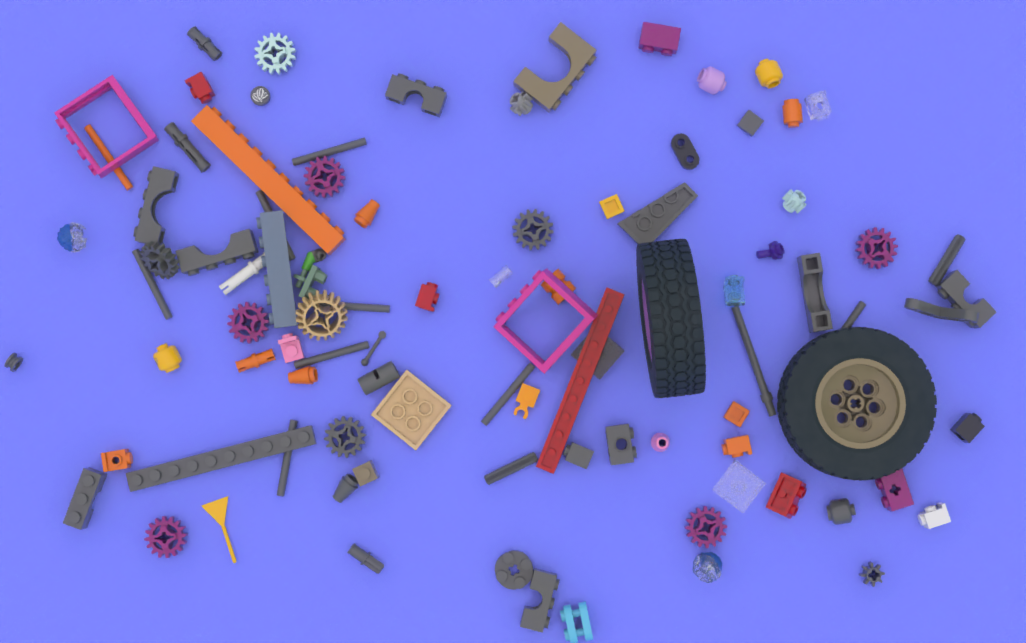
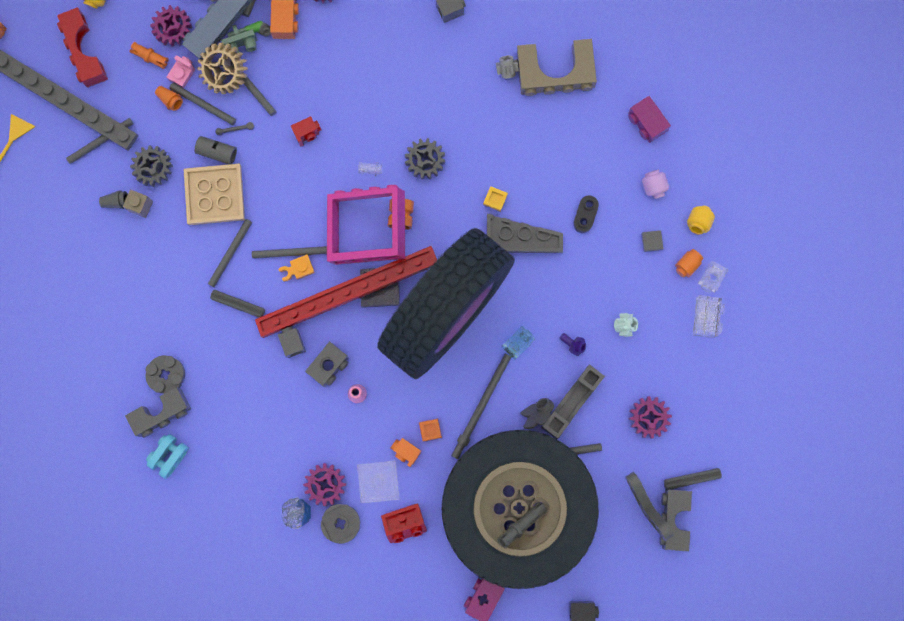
camera: 50 degrees right, 5 degrees down
(178, 396) = (75, 27): none -> red arch
(366, 215) = (326, 35): orange cone -> none
(366, 559) = (76, 261): dark grey axle -> none
(466, 439) = (230, 252): none -> dark grey bar
(749, 551) = (335, 533): none -> dark grey plate
(799, 325) = (538, 413): none -> dark grey plate
(840, 511) = (429, 574): dark grey head -> none
(843, 137) = (707, 316): none -> clear brick
(872, 419) = (516, 529): none -> dark grey pin

